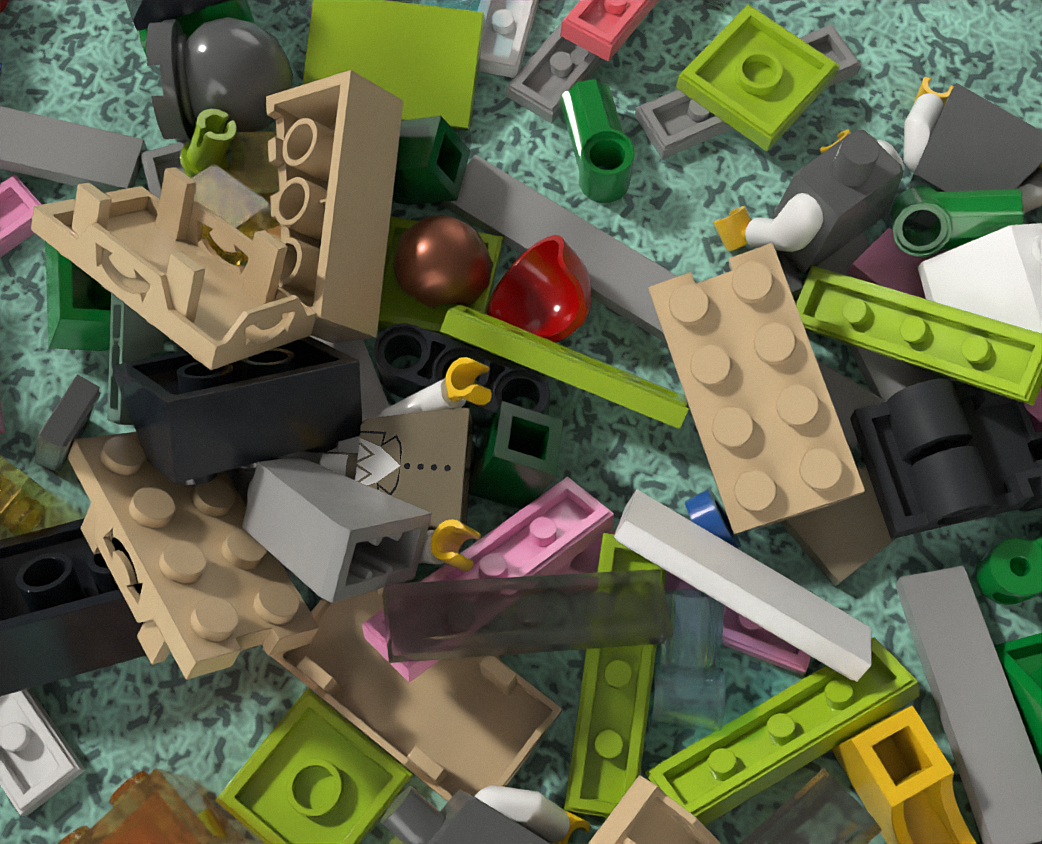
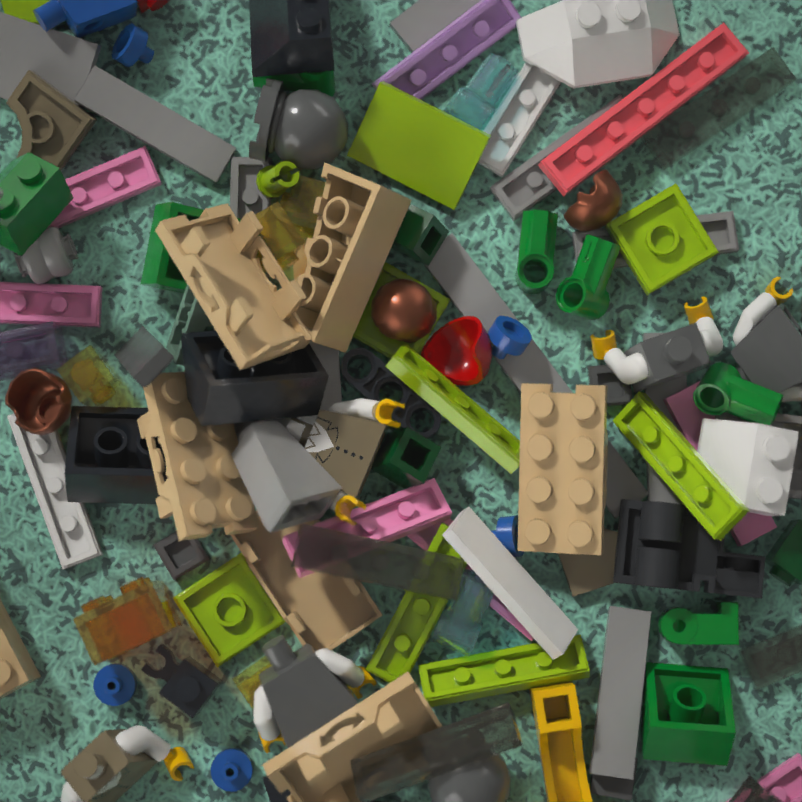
camera: 20 degrees right, 15 degrees up
(211, 721) = (182, 555): none -> dark grey tile
(603, 249) = (508, 337): none -> blue tile
(654, 57) = (597, 208): none -> copper hair
(682, 160) = (585, 291): none -> green piece

